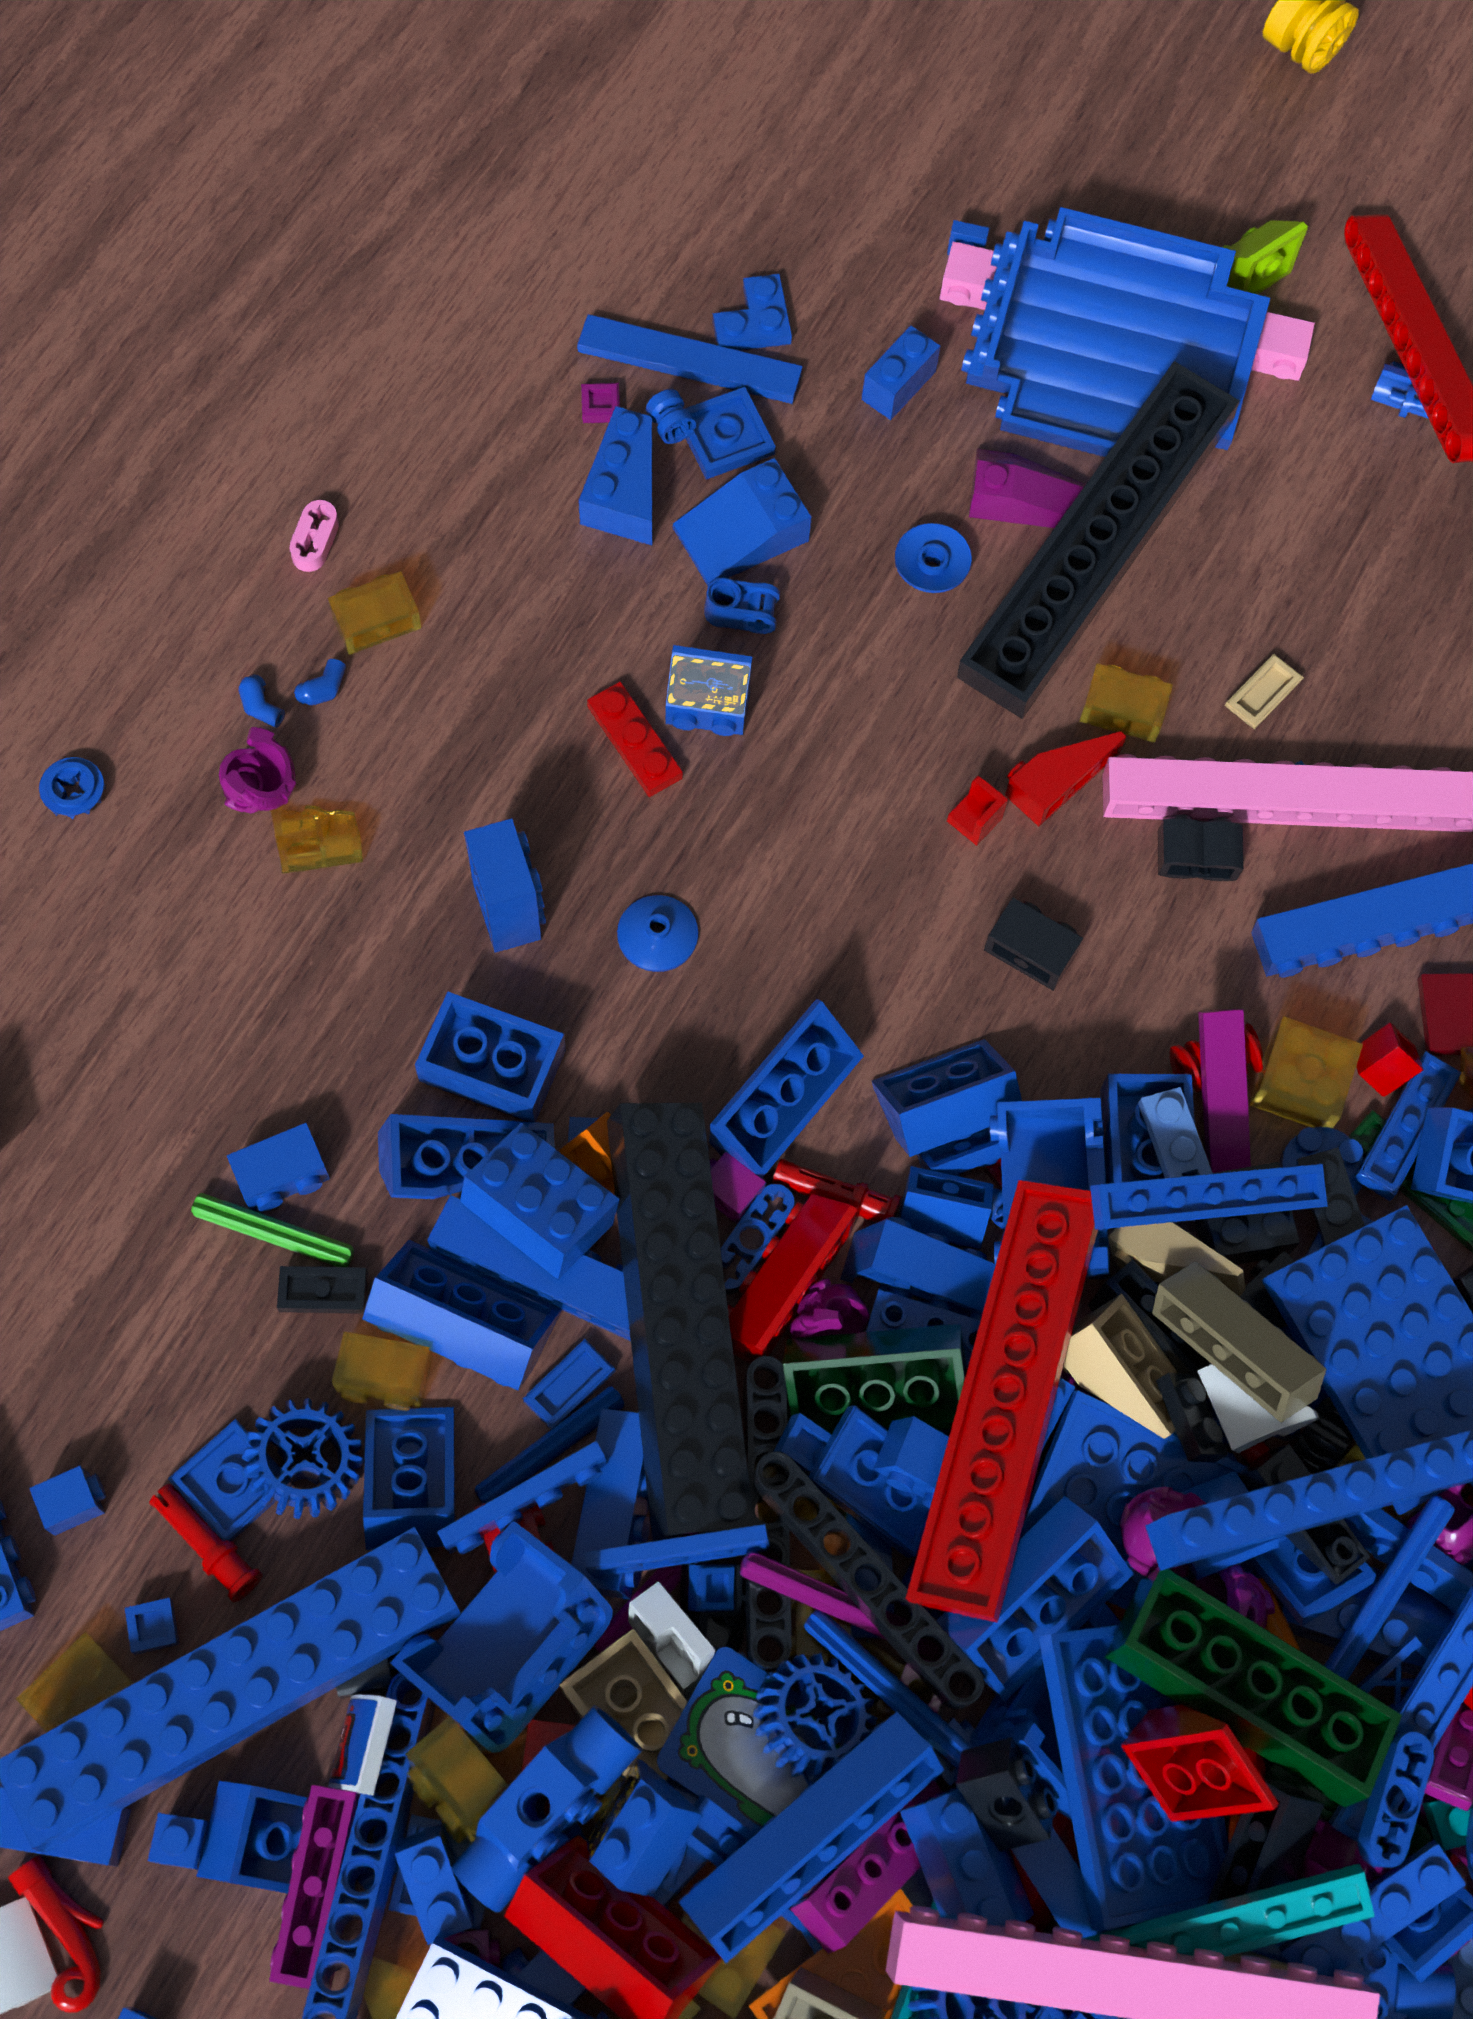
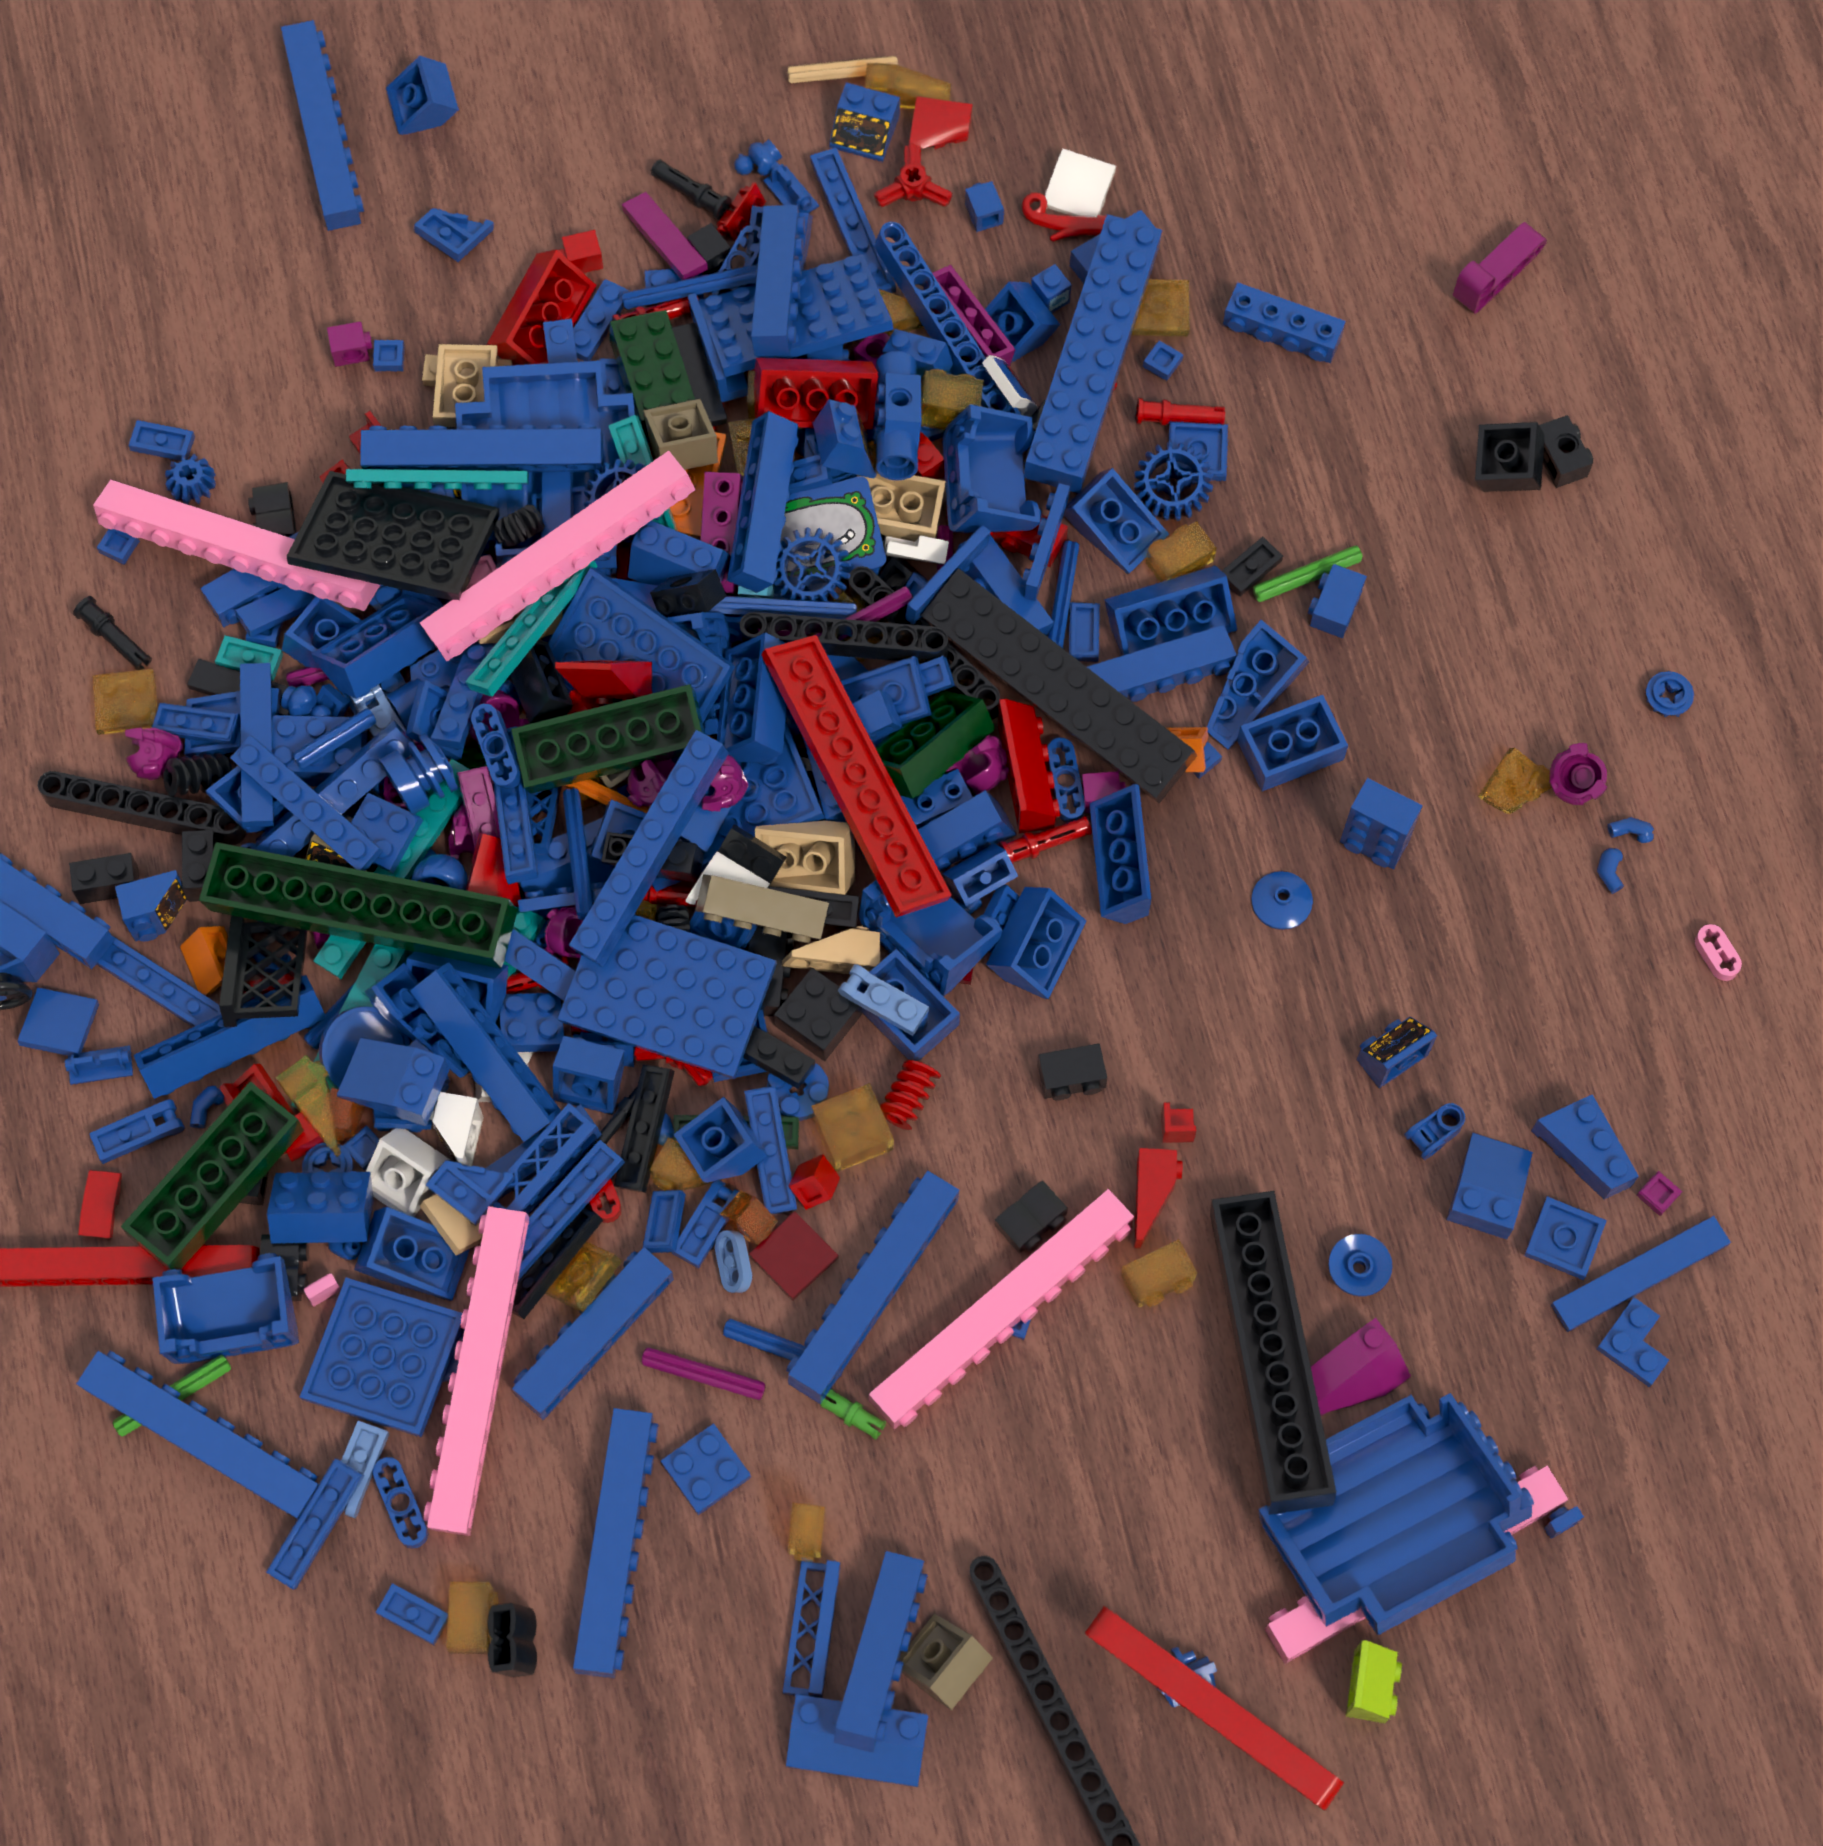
camera: 140 degrees right, 0 degrees up
(68, 1499) = (1262, 374): blue brick -> none
(374, 612) = (1630, 933): clear yellow brick -> none
(539, 1200) = (1187, 682): blue brick -> none
(634, 739) = (1411, 997): red plate -> none
(672, 420) = (1602, 1204): blue wheel -> none
(900, 372) = (1505, 1377): blue brick -> none
(1208, 1196) = (842, 970): blue plate -> none
(1224, 1089) = (887, 1065): magenta tile -> none
(1264, 691) = (1086, 1364): tan tile -> none

